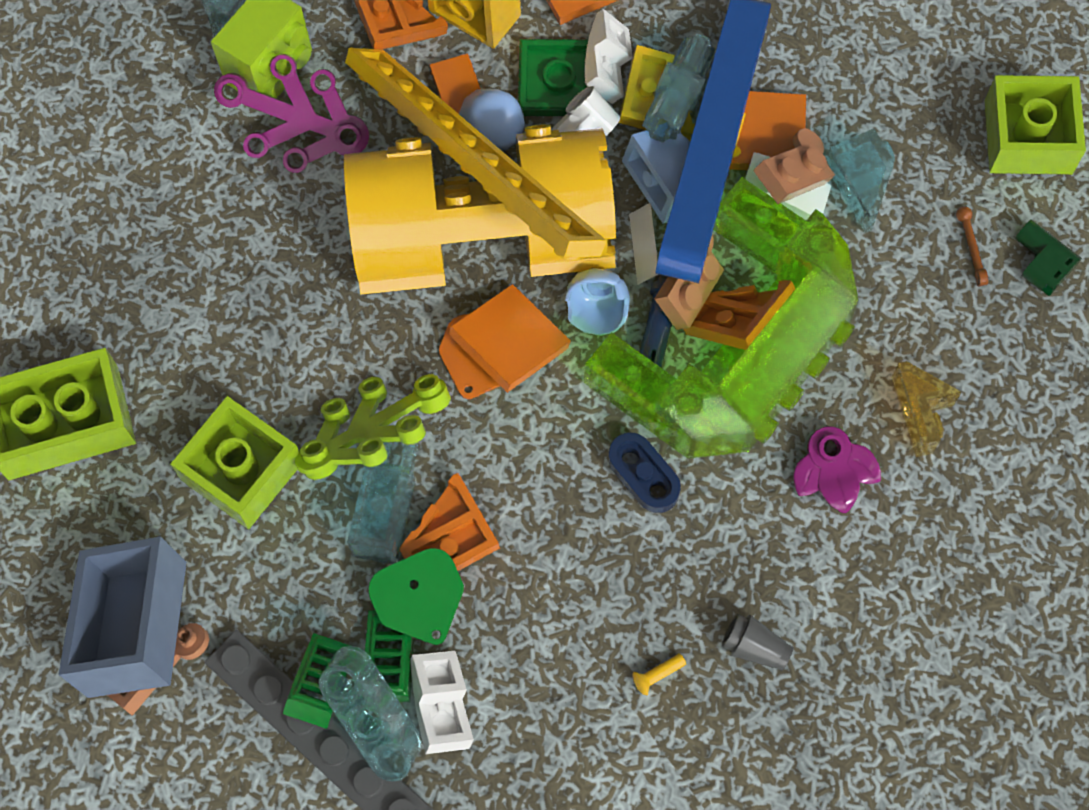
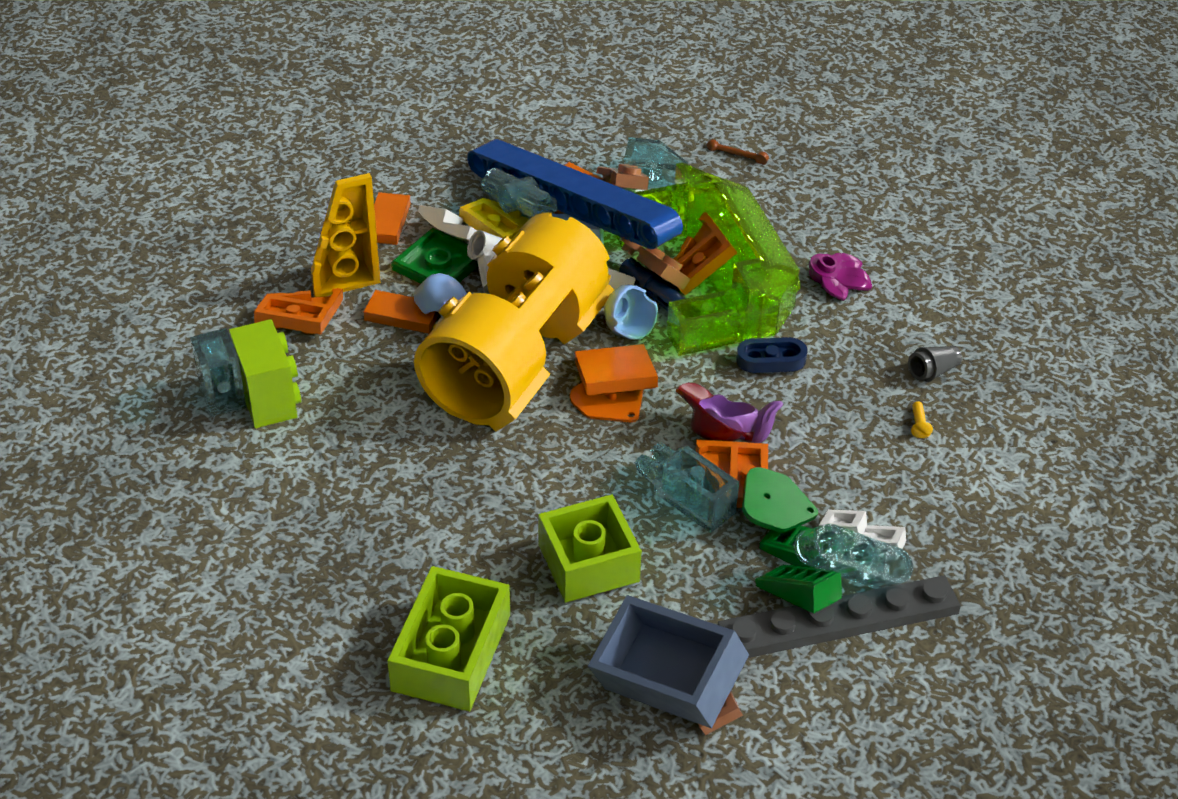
camera: 60 degrees left, 25 degrees down
(299, 116) = (337, 385): magenta plant -> none
(323, 455) = (629, 491): lime plant -> none
(477, 156) = (495, 277): yellow plate -> none
(504, 474) = (726, 420): none -> hair
(919, 396) = (826, 216): clear yellow slope -> none
(1034, 124) = (687, 82): lime brick -> none
(1052, 260) = (779, 126): dark green piece -> none

